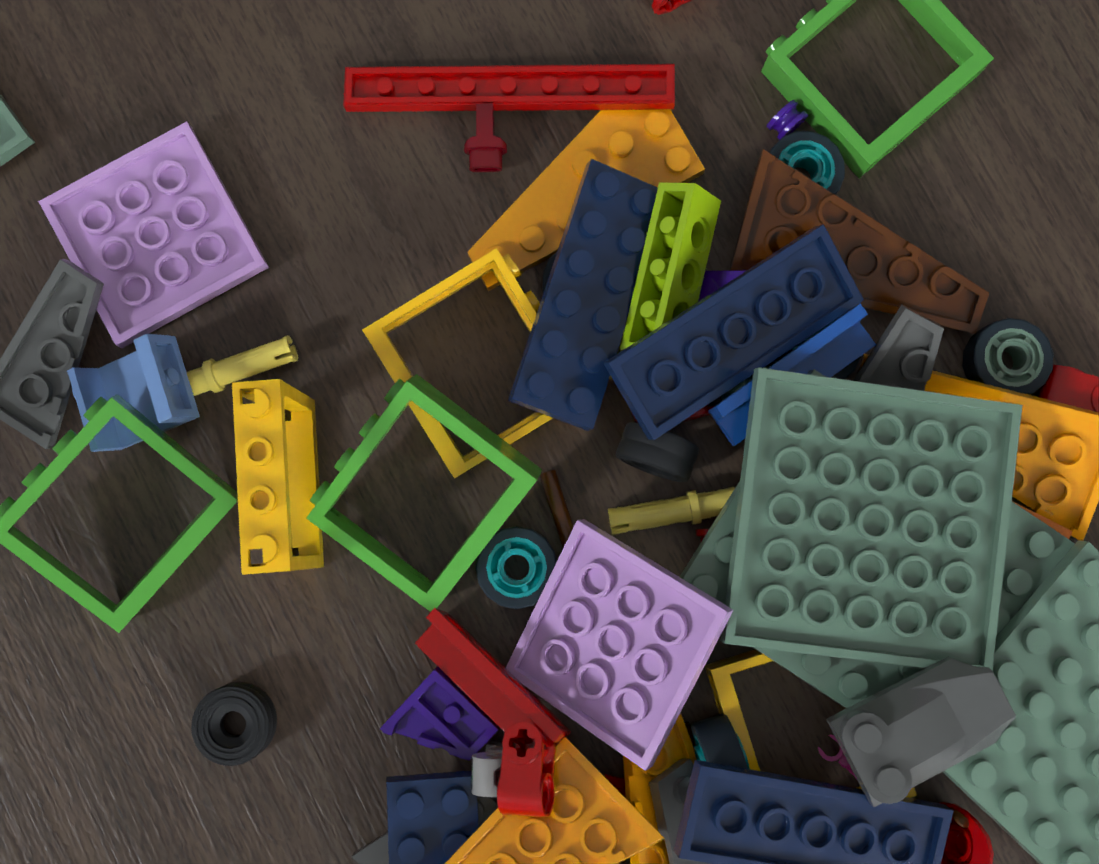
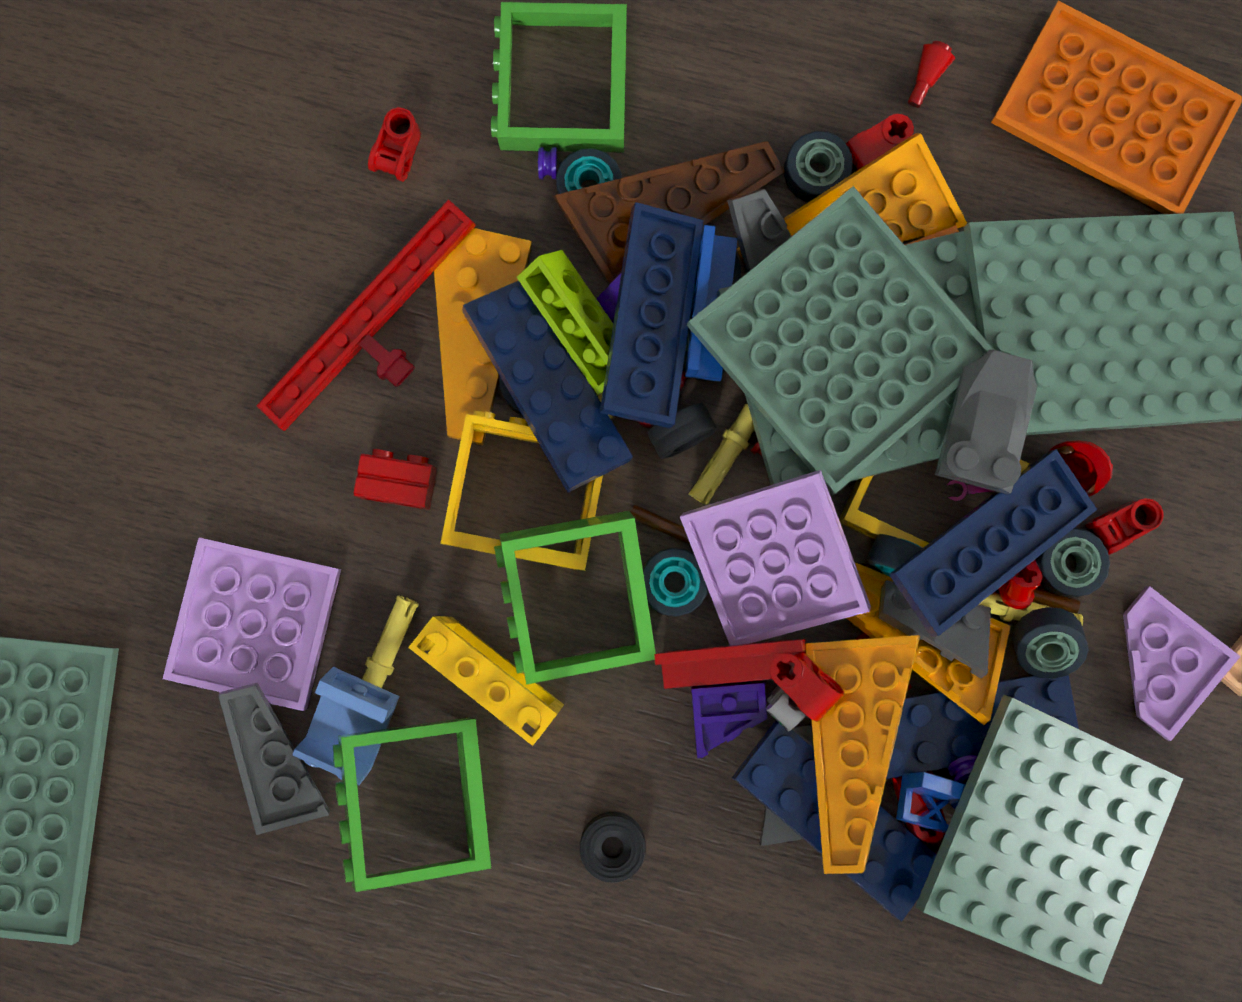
camera: 45 degrees left, 0 degrees up
(386, 243) = (395, 480): none -> red brick

